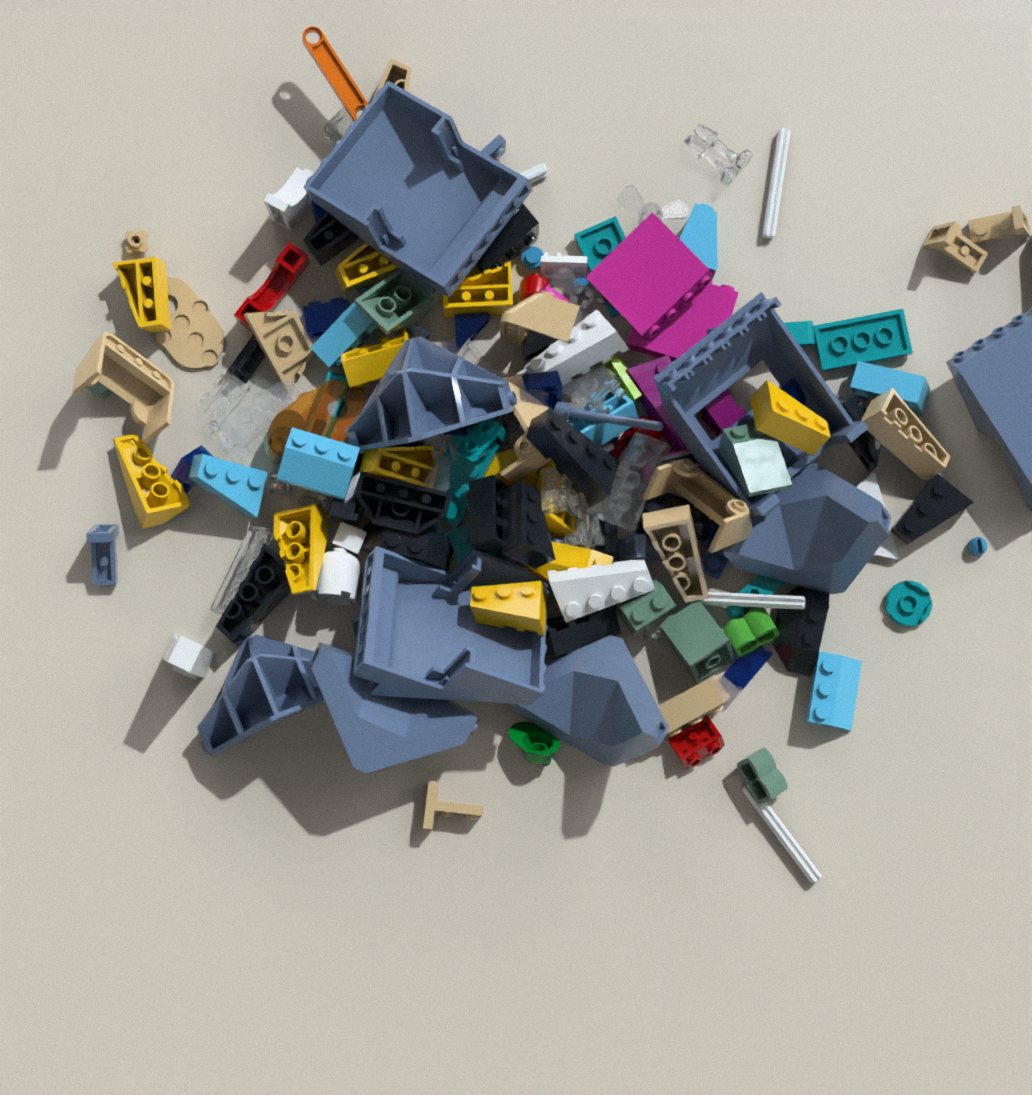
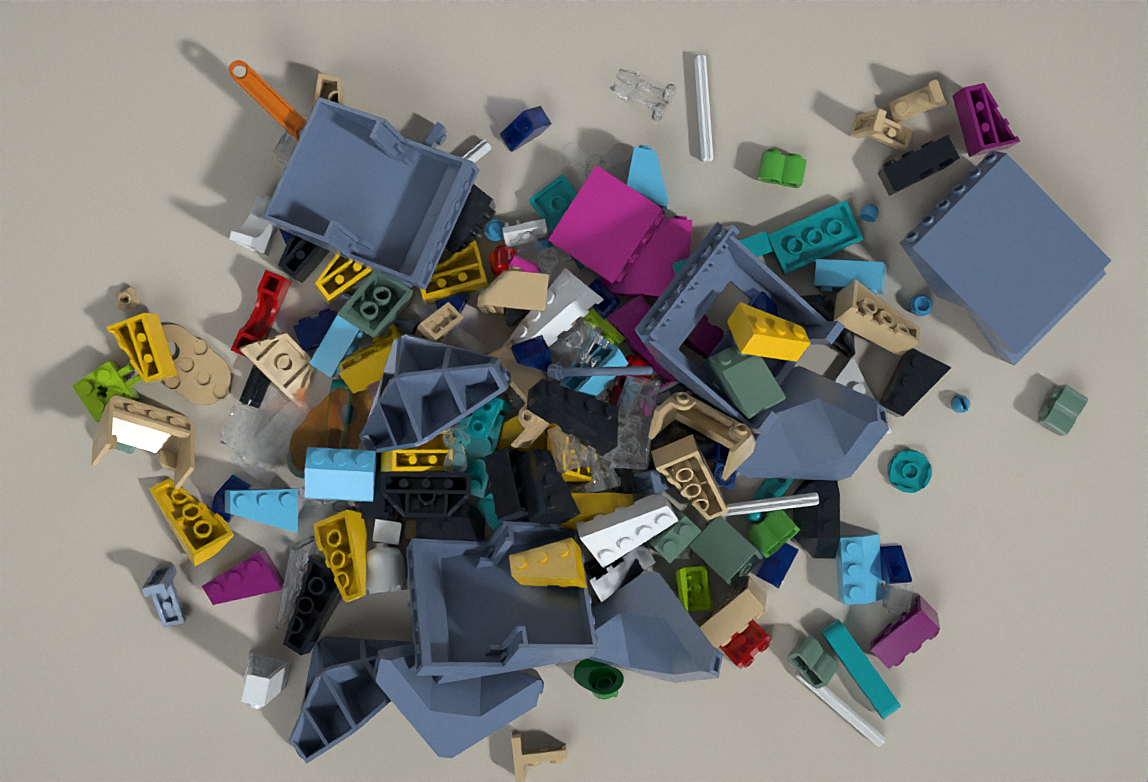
camera: 10 degrees left, 5 degrees up
(98, 315) = (93, 387): none -> lime hinge
(189, 554) = (247, 579): none -> magenta wedge
(456, 335) = (439, 323): none -> tan bracket
(588, 161) = (525, 128): none -> clear blue slope
(633, 355) = (610, 300): none -> clear blue slope
(657, 669) = (694, 587): none -> lime bracket
(811, 796) = (860, 669): none -> teal beam
(843, 262) = (781, 169): none -> bright green brick
(866, 730) = (897, 598): none -> clear brick
(866, 769) = (906, 634): none -> magenta wedge
(870, 695) = (894, 565): none -> clear blue slope
(924, 328) = (869, 213): none -> dark azure hinge
(958, 434) = (921, 305): none -> dark azure plate
(984, 290) = (918, 165): none -> black wedge

